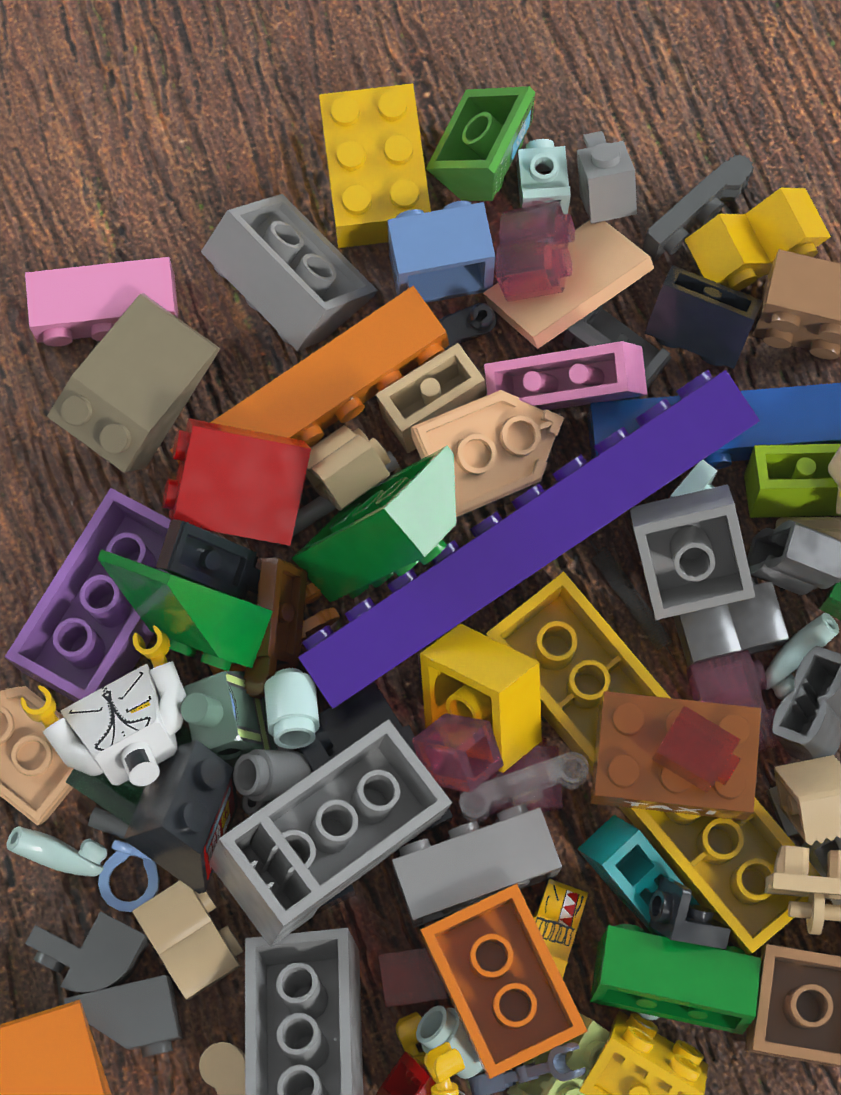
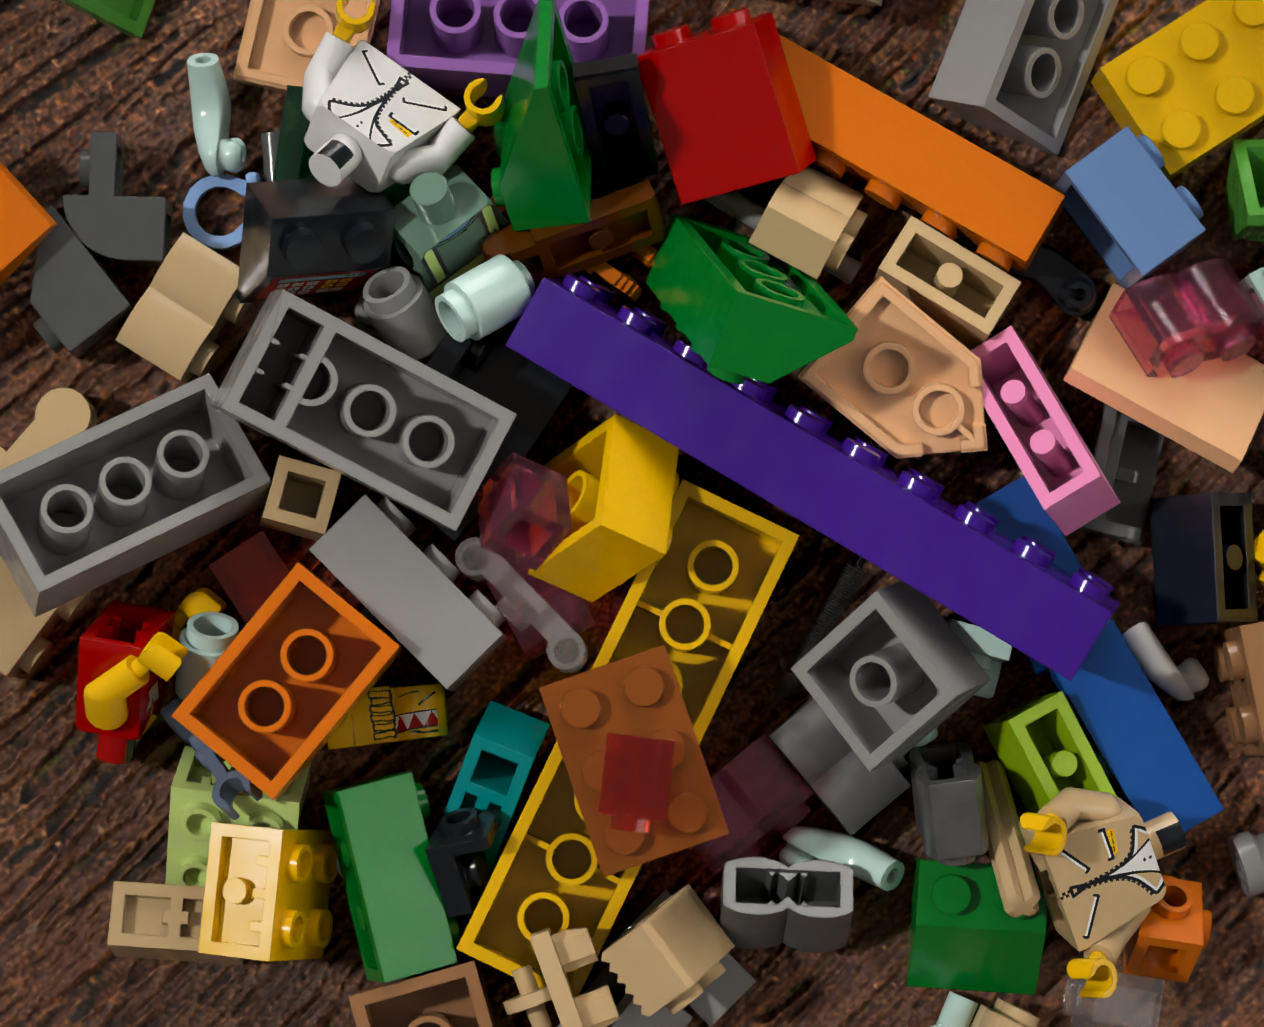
camera: 65 degrees right, 10 degrees up
(369, 915) = (300, 498): none -> tan brick
(774, 376) = (1159, 668): none -> white arm

